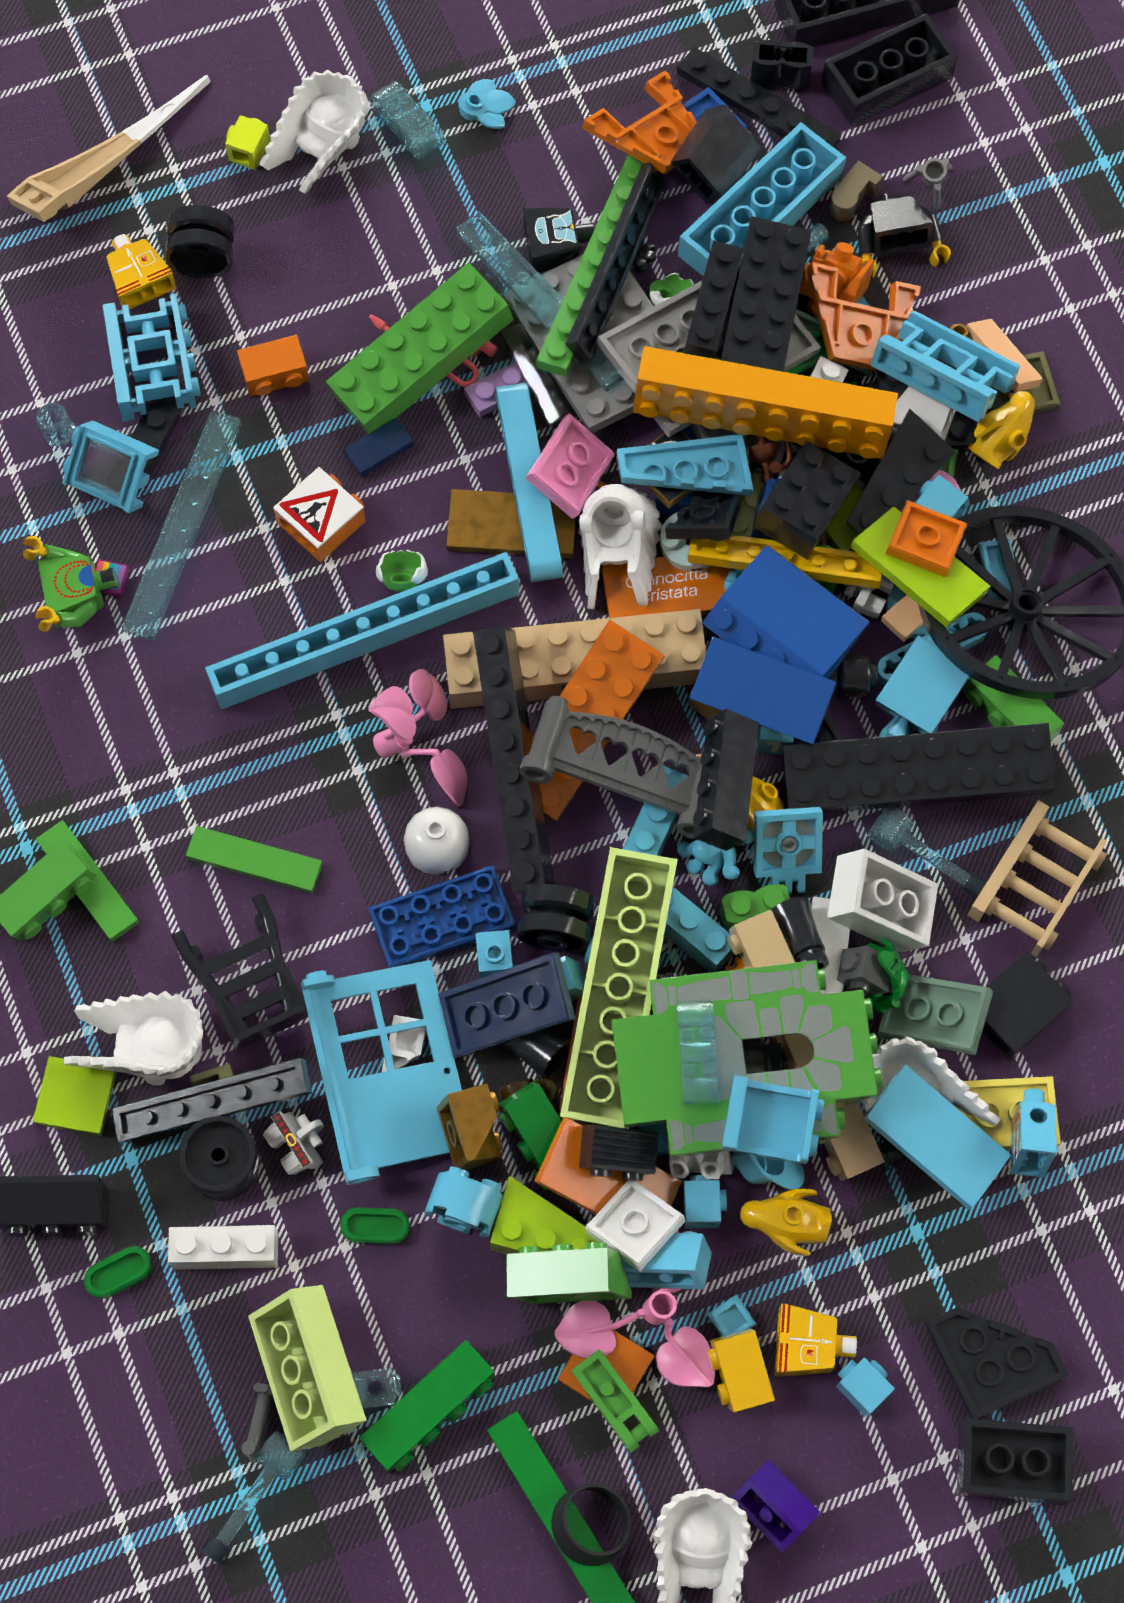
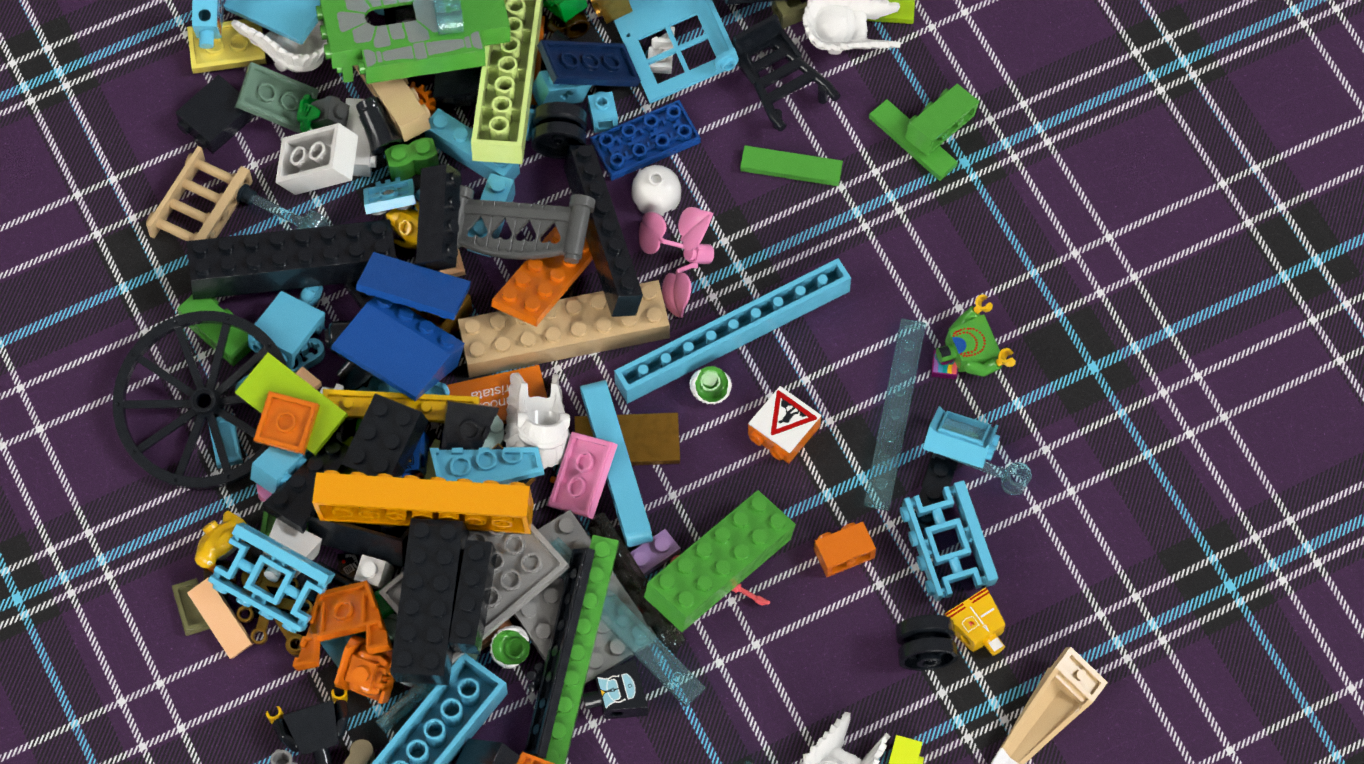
camera: 175 degrees right, 5 degrees down
(378, 447) = (744, 489): dark blue tile -> none

